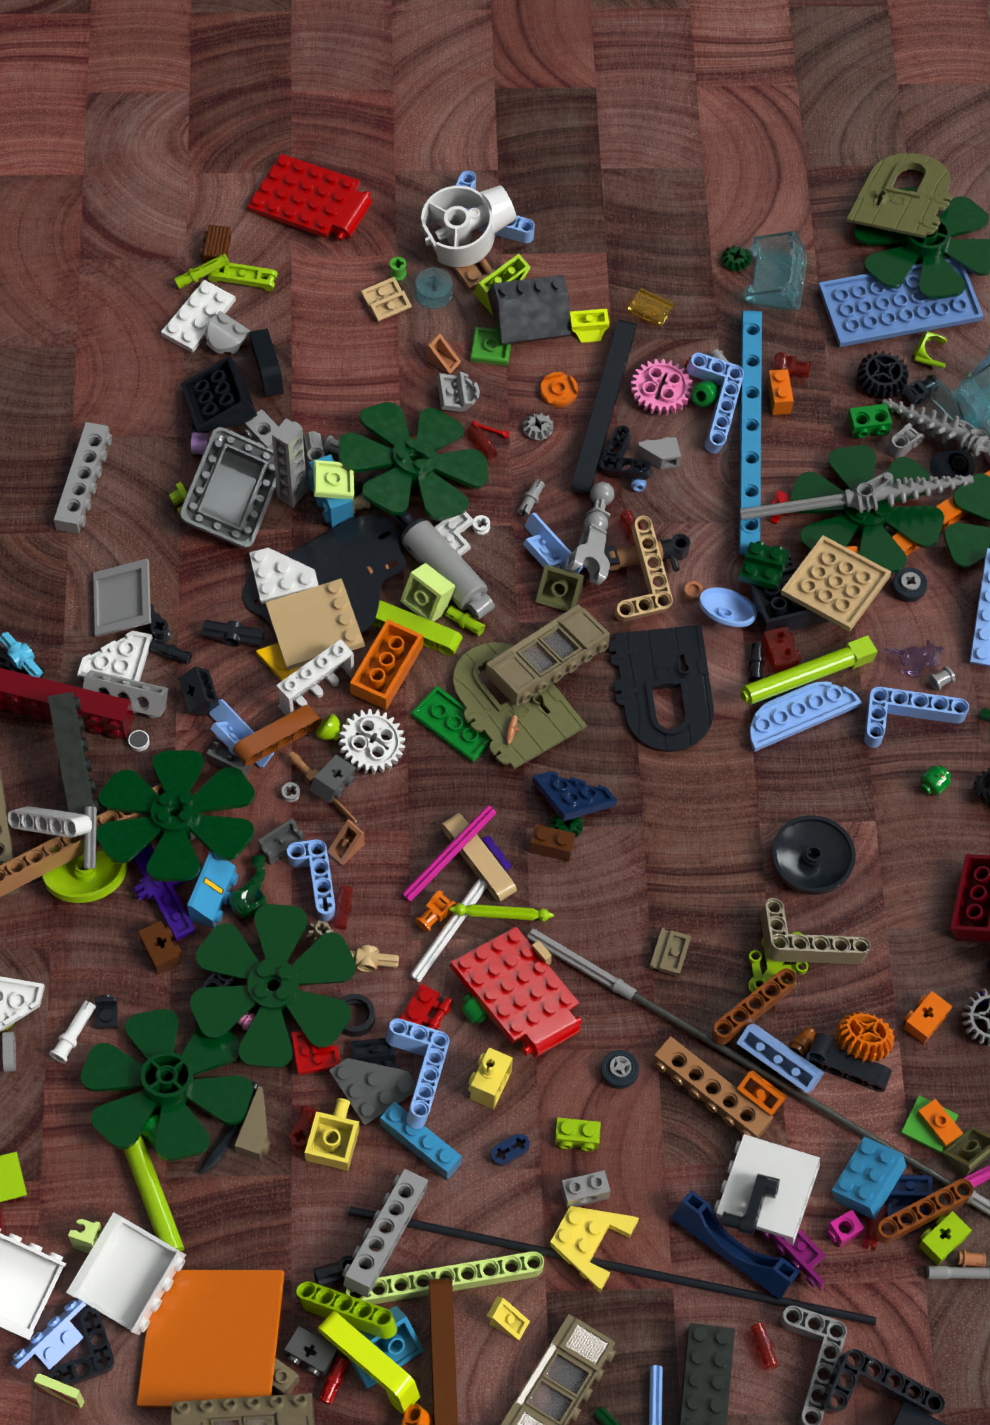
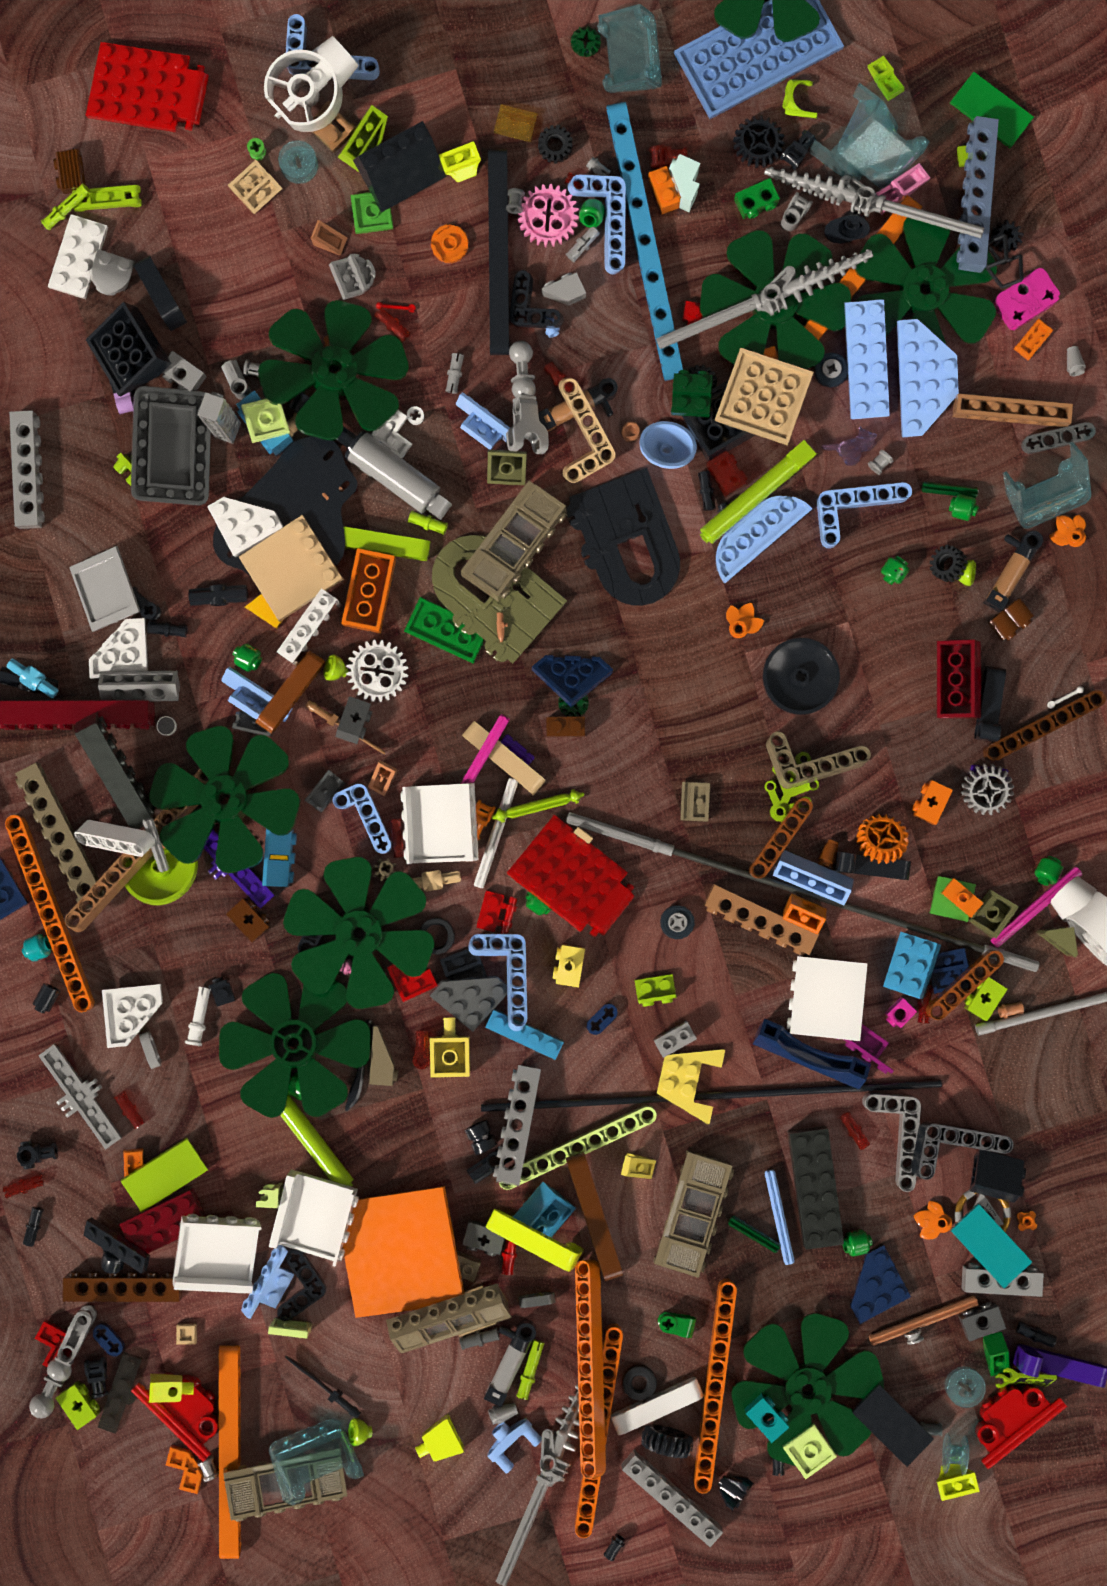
camera: 15 degrees left, 25 degrees up
(198, 691) = (205, 665): black brick -> none
(243, 695) = (247, 657): none -> green head
(250, 898) = (313, 854): dark green hair -> none
(289, 786) = (321, 744): light grey bush -> none
(339, 1234) = (481, 1137): none -> black wheel
(358, 1313) = (512, 1204): lime beam -> none
(392, 901) = (440, 823): none -> white panel
(427, 593) = (386, 508): yellowish green brick -> none
(533, 431) = (437, 299): light grey gear -> none
(634, 360) = (515, 201): none -> dark grey bush
(678, 424) = (582, 244): none -> light grey pin
(684, 340) = (552, 155): none -> black tyre
(747, 1224) = (826, 1004): black beam -> none
(766, 789) = (745, 618): none -> orange plate
(804, 383) = (683, 174): none -> light aqua piece
(948, 580) = (867, 359): none -> light blue plate

